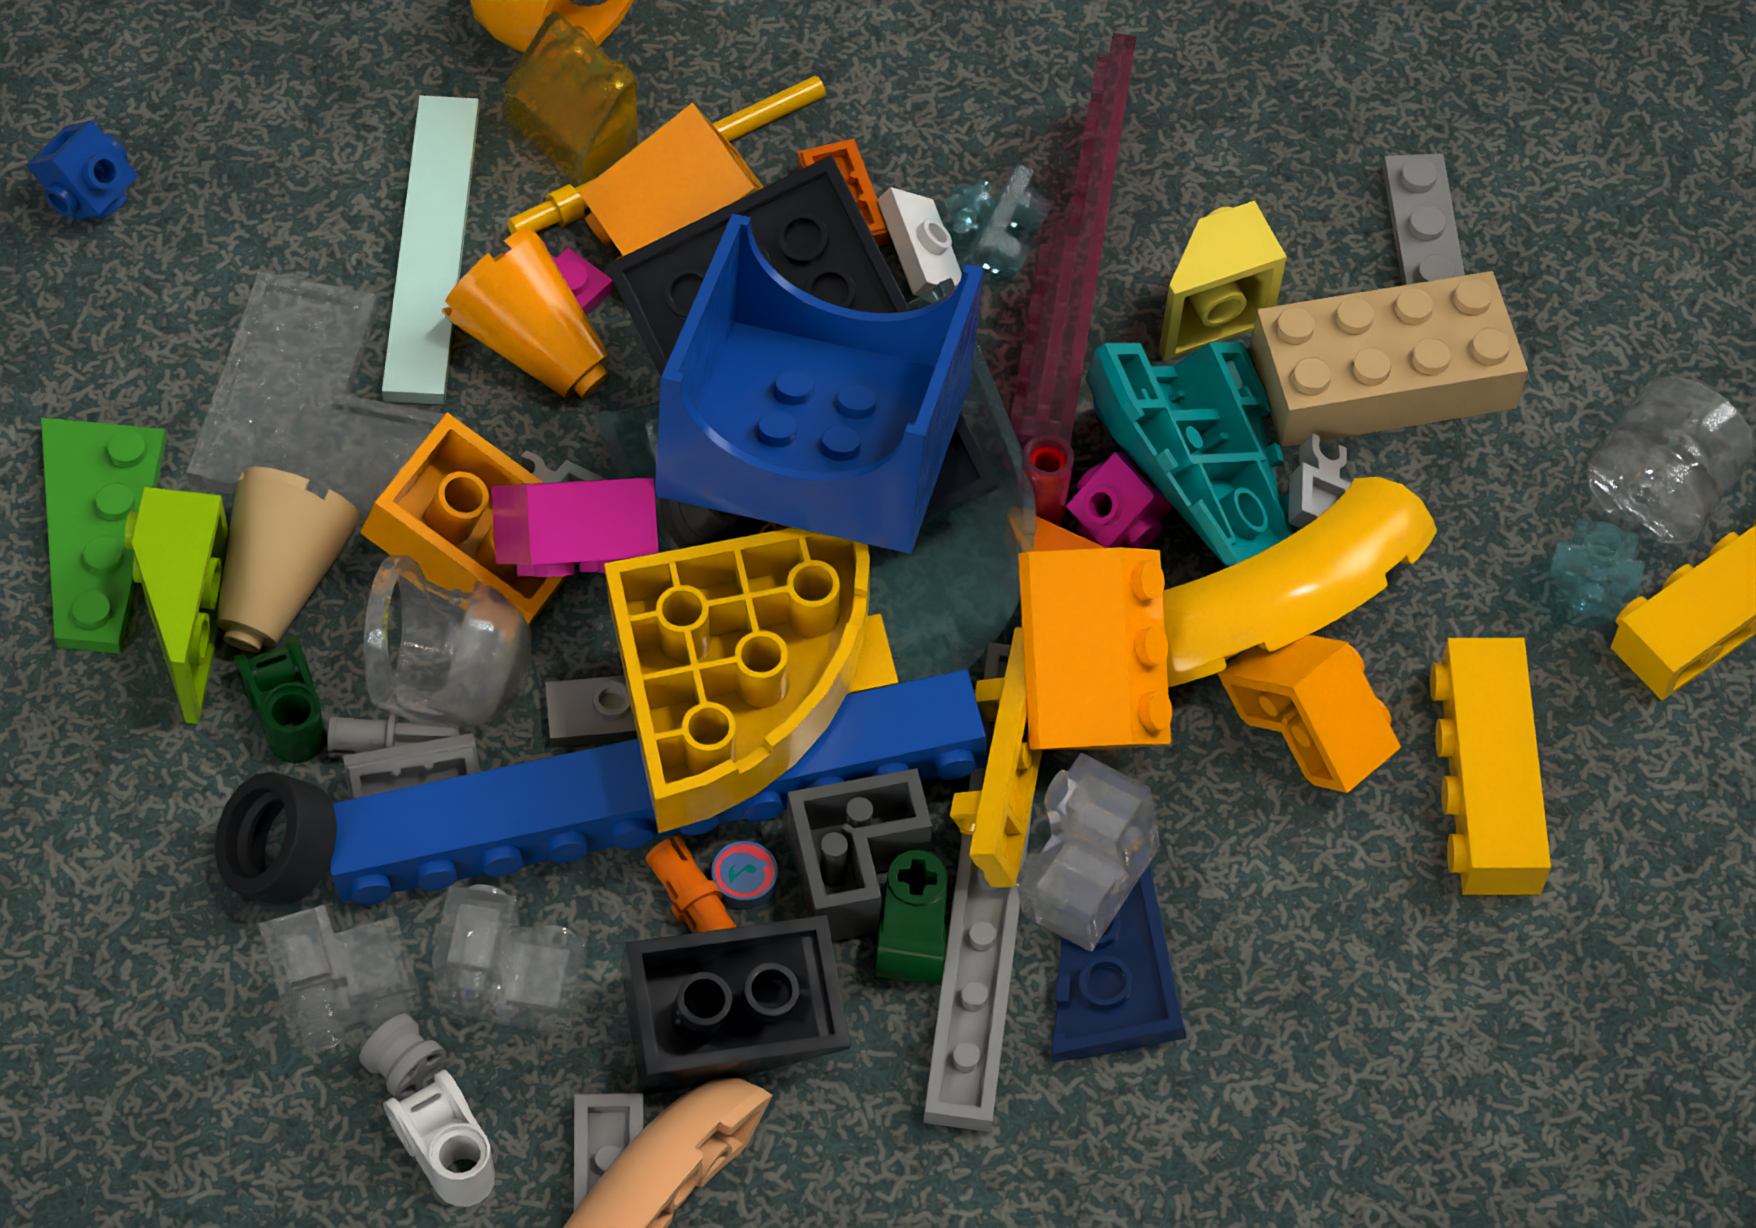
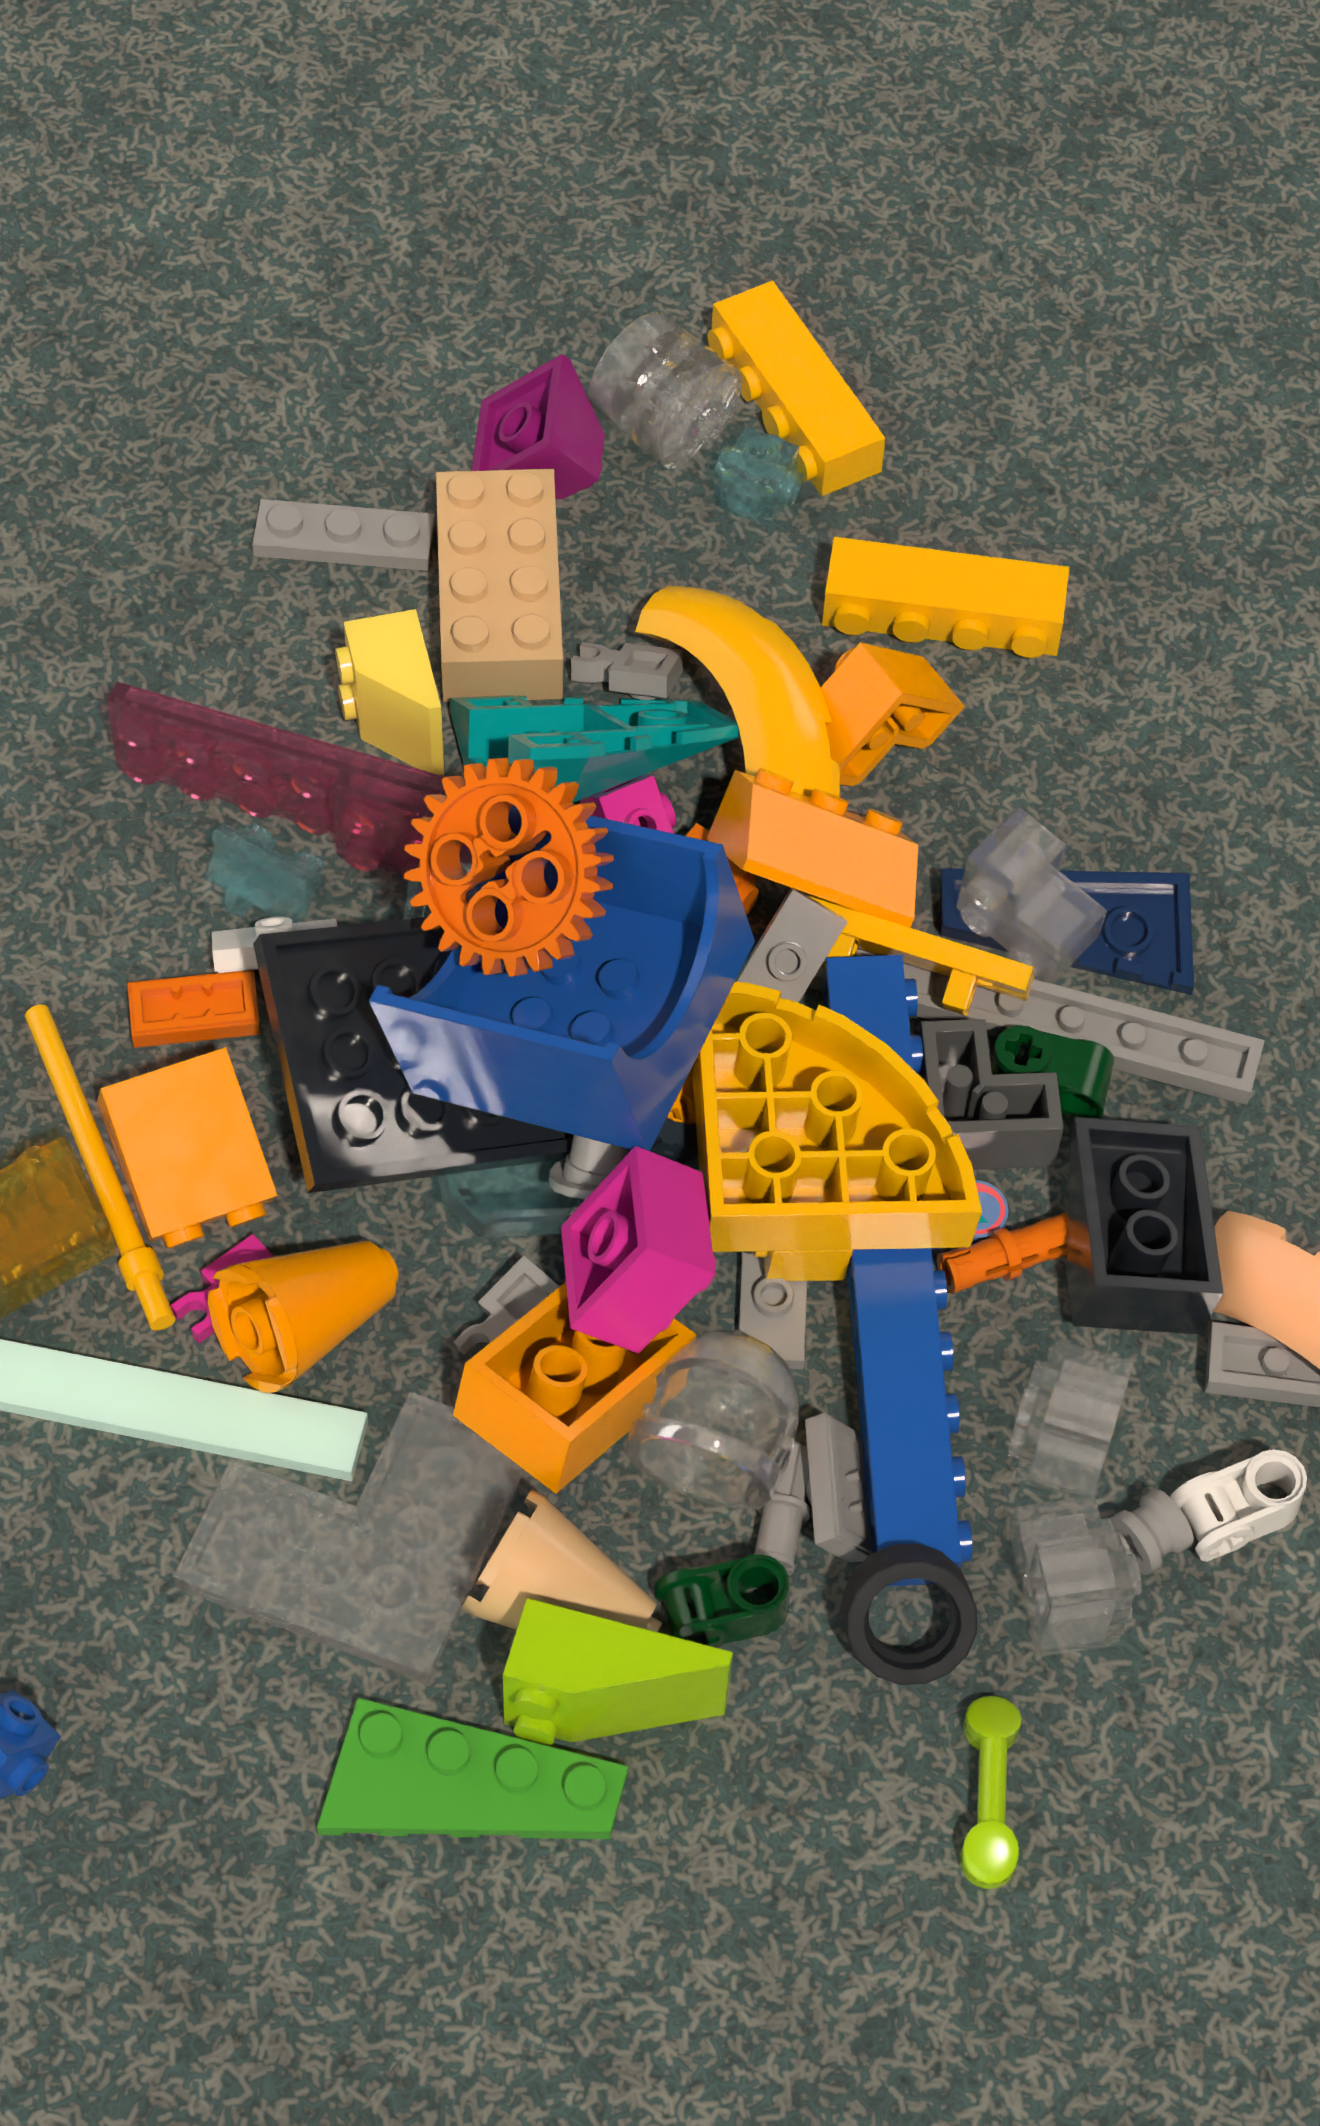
camera: 80 degrees left, 0 degrees up
(185, 934) = (990, 1846): none -> lime bar
(932, 269) = (477, 816): none -> orange gear
(964, 638) = (793, 946): none -> light grey plate
(1587, 372) = (542, 425): none -> magenta slope

